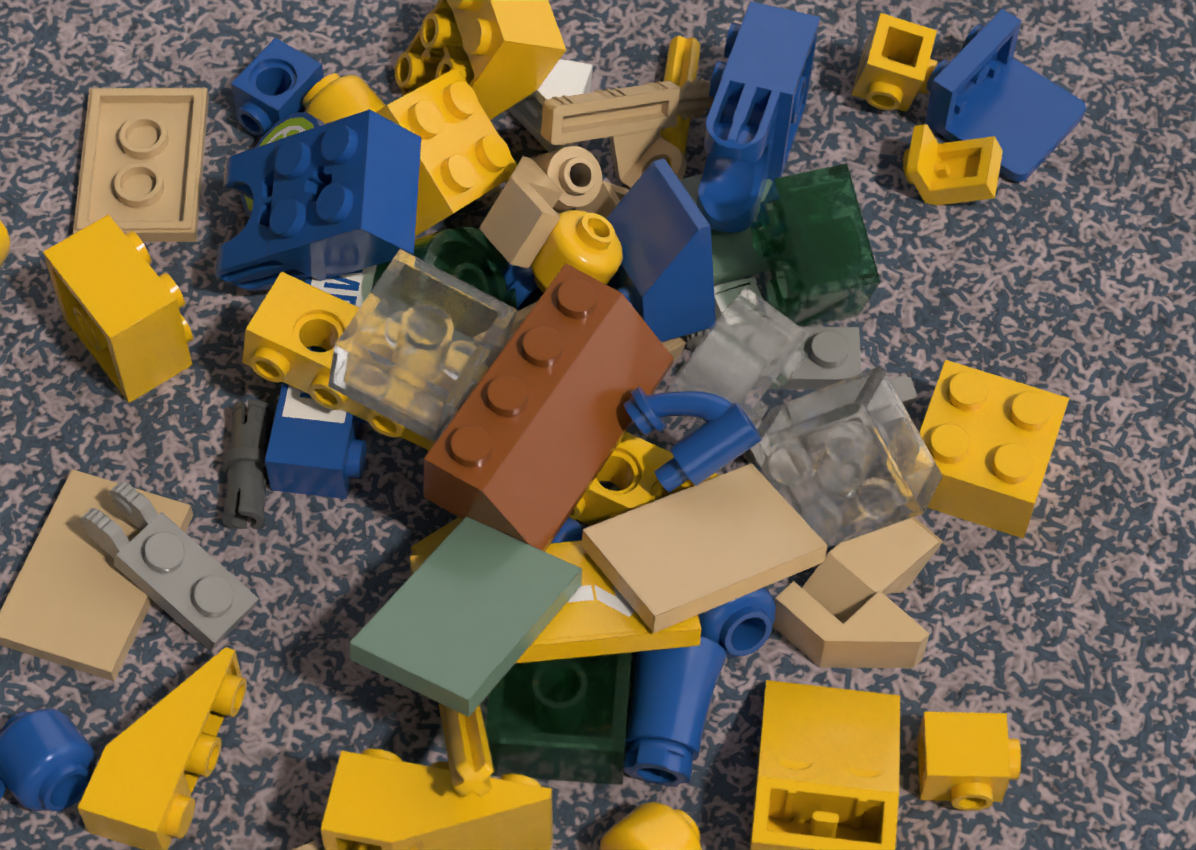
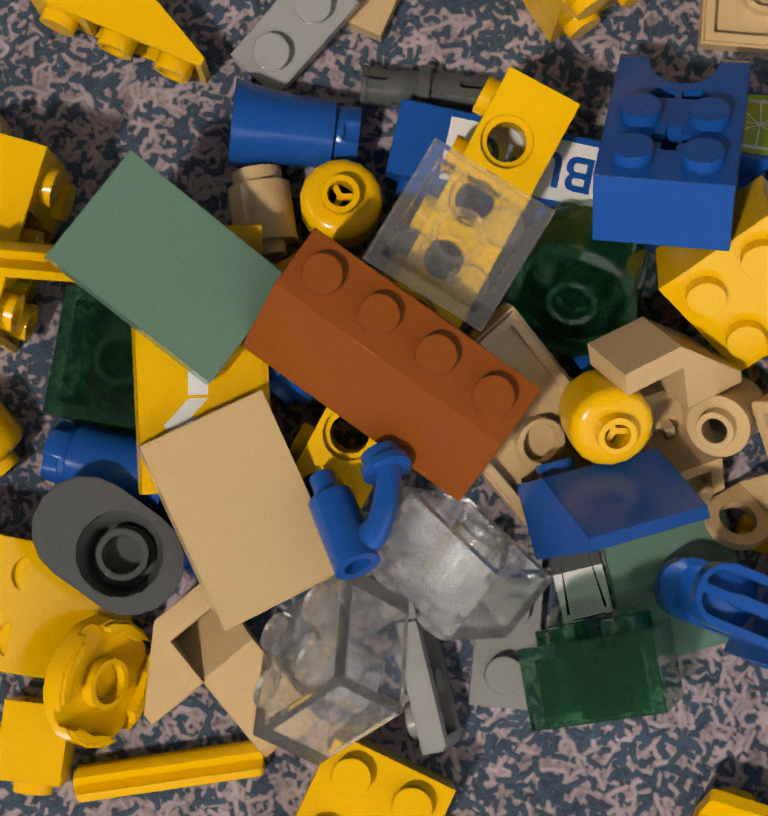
camera: 95 degrees right, 25 degrees up
(296, 577) = (290, 128): none -> blue plant
(370, 590) = (264, 199): none -> tan brick
(374, 517) = (349, 184): none -> yellow head
(756, 668) = (107, 545): none -> dark grey piece
(894, 689) = (97, 681): none -> yellow tile
(971, 635) = (167, 771): none -> yellow axle

